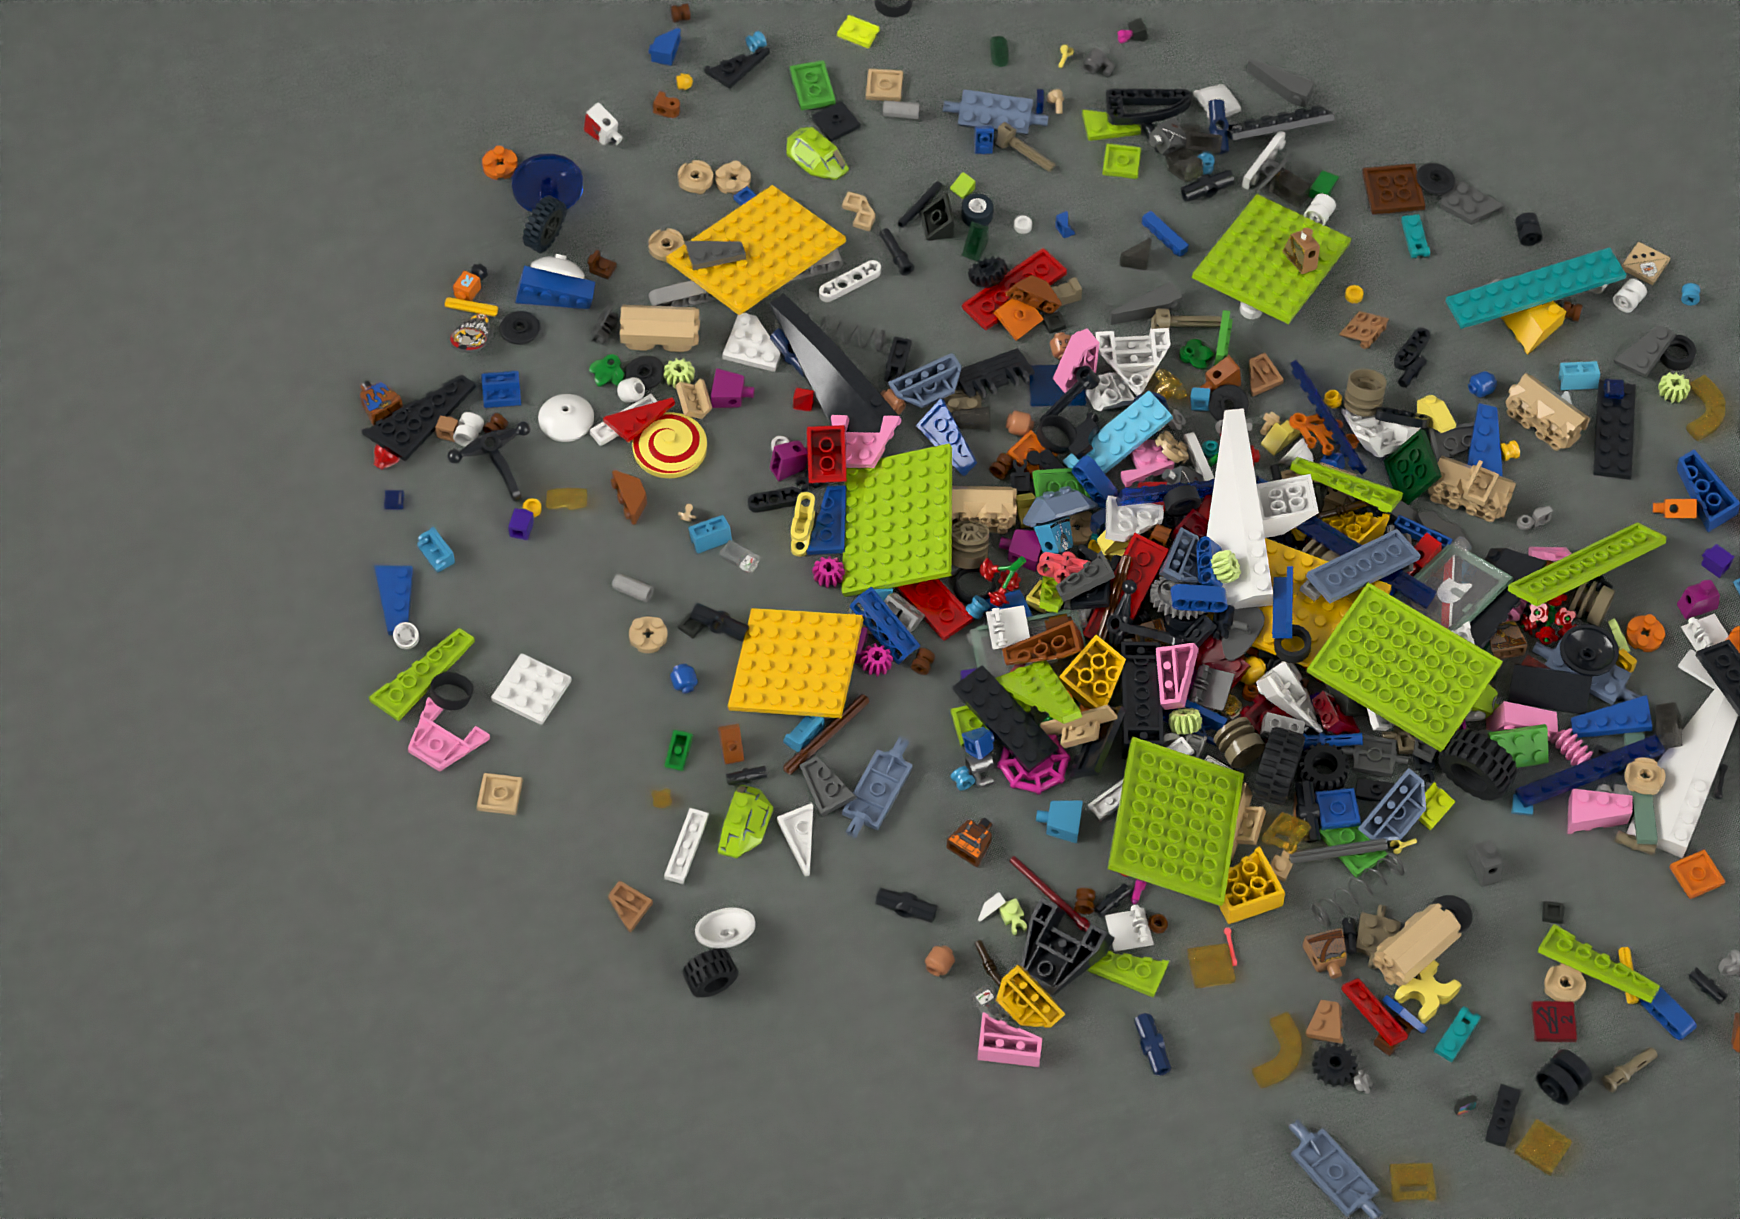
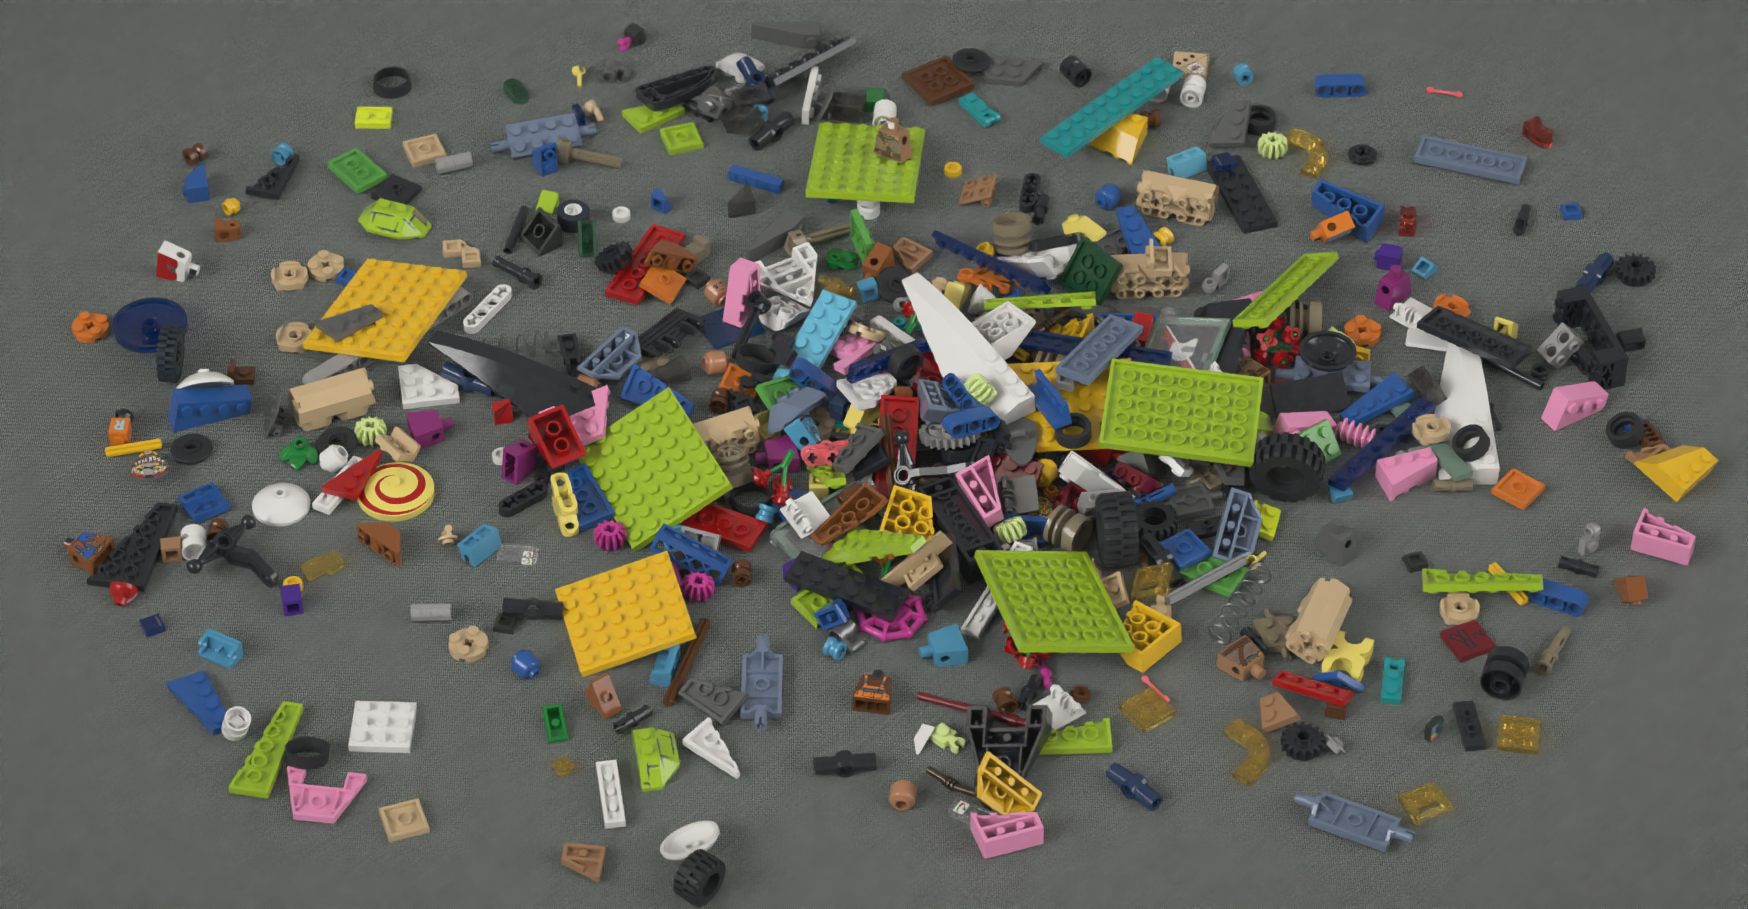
camera: 25 degrees left, 15 degrees down
(1677, 820) = (1477, 450): none -> black tyre

